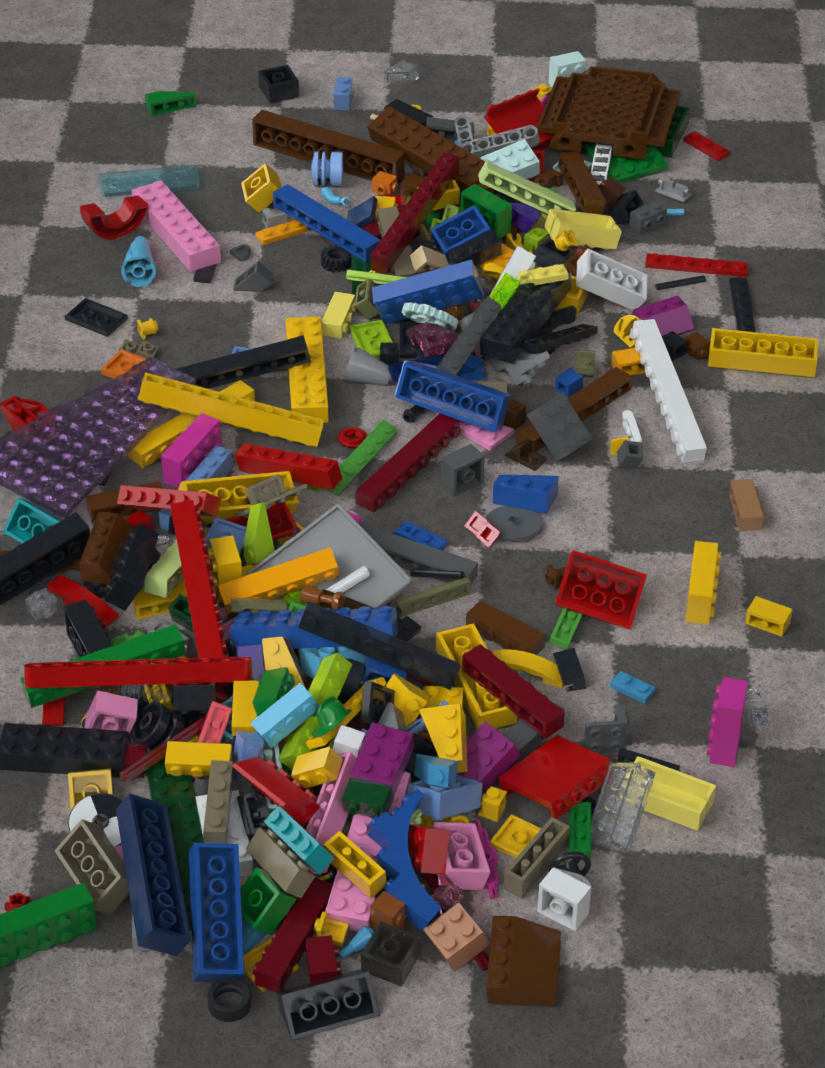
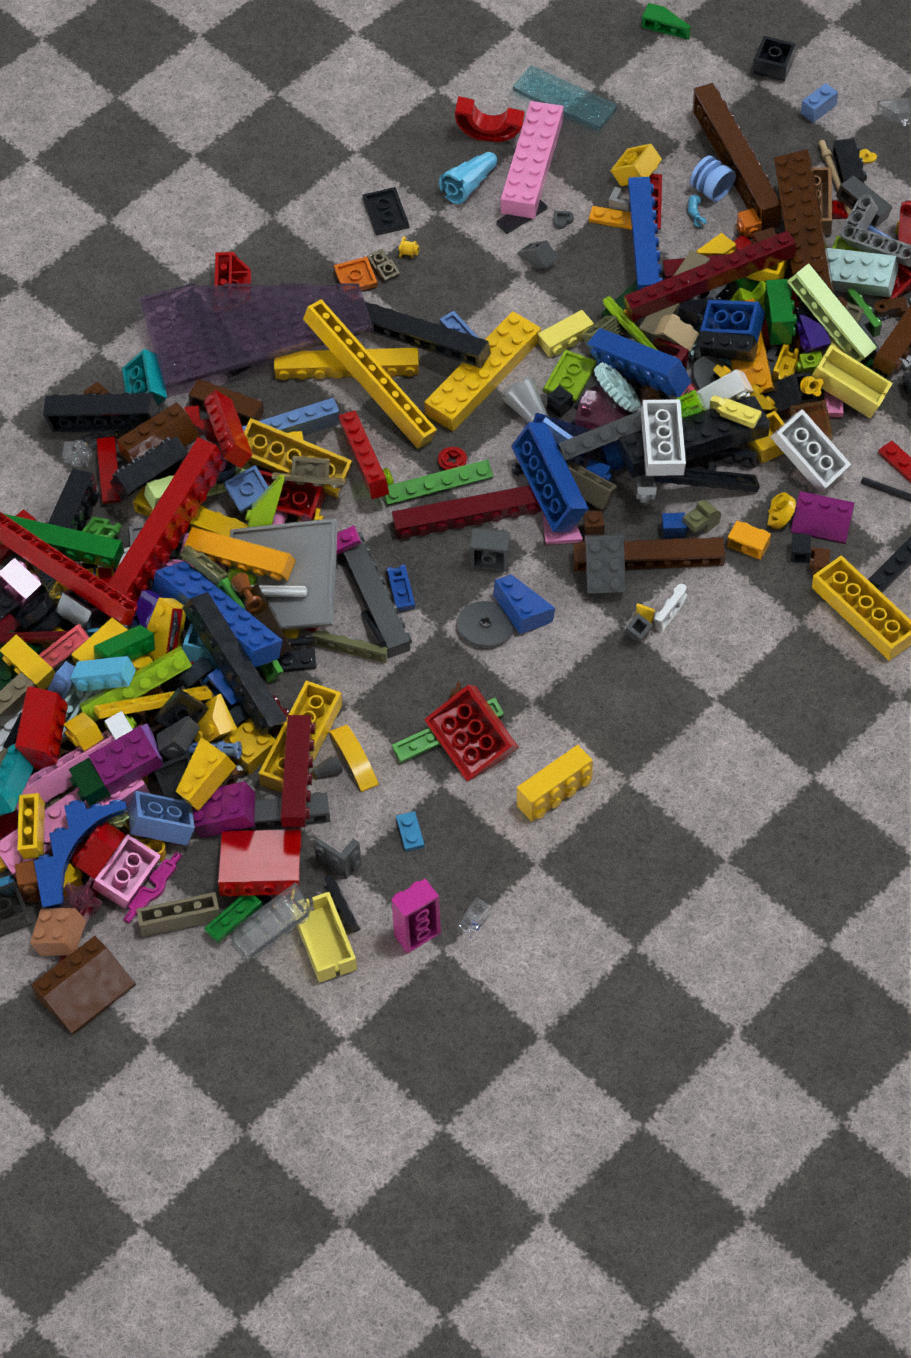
camera: 45 degrees right, 15 degrees up
(190, 449) = (313, 388): dark pink brick -> none
(225, 560) = (216, 510): yellow brick -> none
(329, 715) = (125, 696): green piece -> none
(330, 263) = (618, 269): black tyre -> none
(363, 213) = (692, 242): dark blue tile -> none
(436, 770) = (165, 796): dark azure slope -> none
(483, 529) = (454, 614): slope -> none
(493, 804) = (198, 846): yellow brick -> none
(505, 629) = (369, 713): reddish brown brick -> none
(514, 836) = (190, 884): yellow tile -> none
(521, 311) = (663, 437): none -> white brick
(524, 455) = (565, 570): dark brown slope -> none
(565, 891) = (165, 958): white piece -> none
(570, 669) = (378, 782): black hinge -> none
(668, 391) = (736, 590): white brick -> none
(746, 505) = (680, 740): medium nougat brick -> none
(768, 616) = (578, 849): yellow brick -> none

